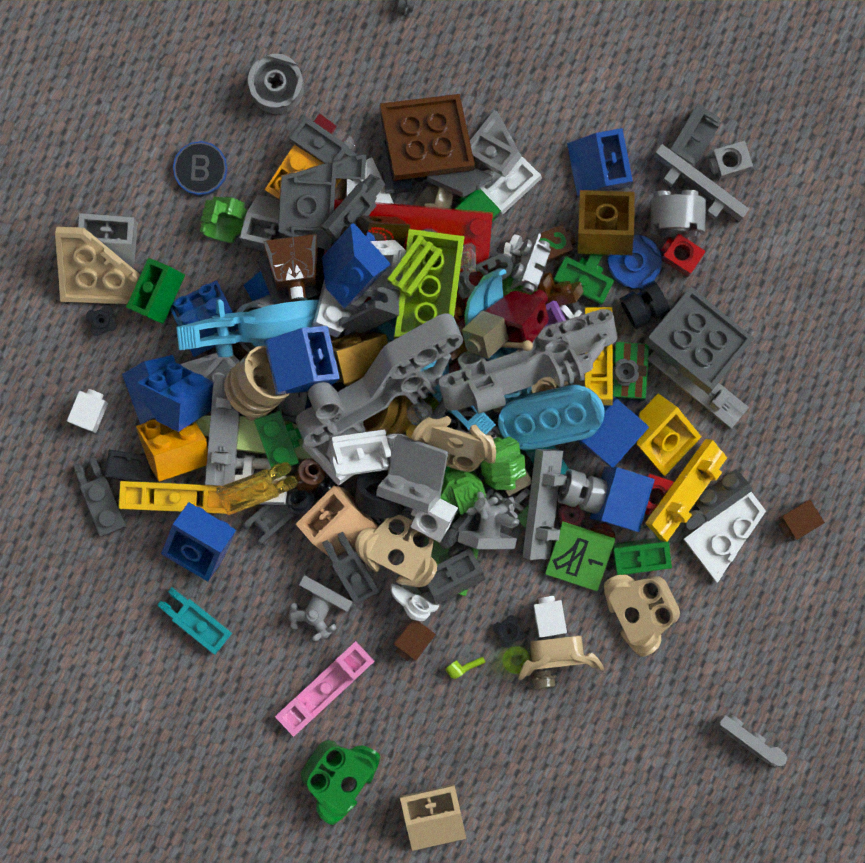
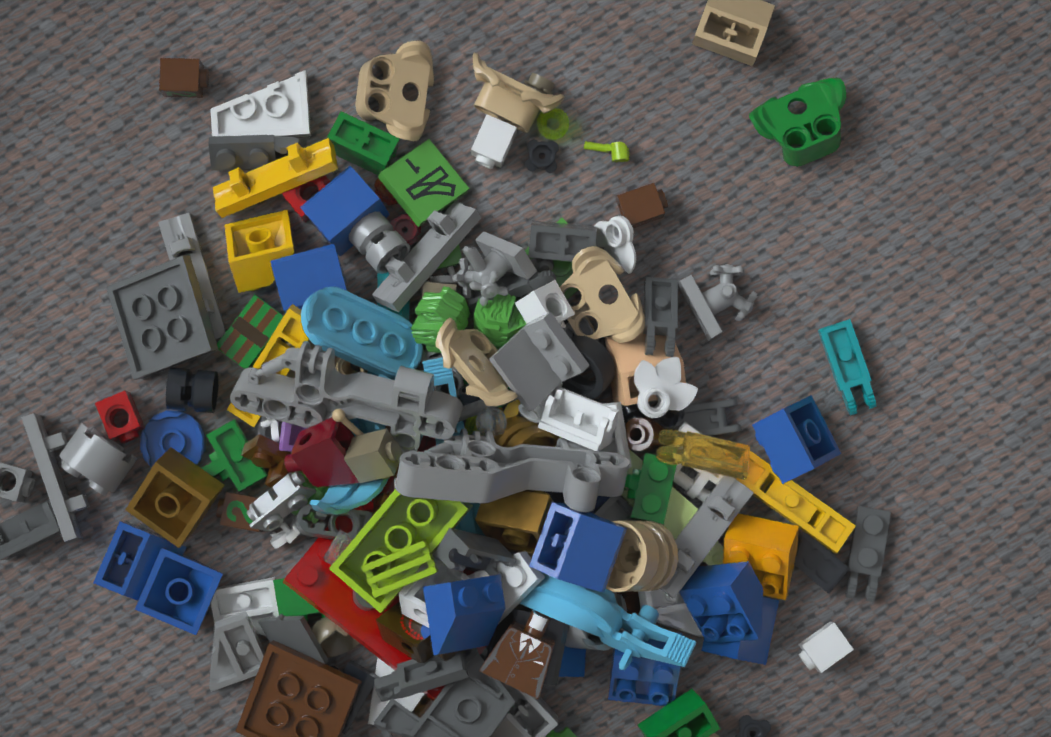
camera: 145 degrees left, 0 degrees up
(315, 519) = (664, 383): none -> white plate
(324, 689) = (761, 216): bright pink slope -> none
(560, 162) = (179, 591): none -> blue slope
(624, 364) = (250, 326): dark grey plate -> none

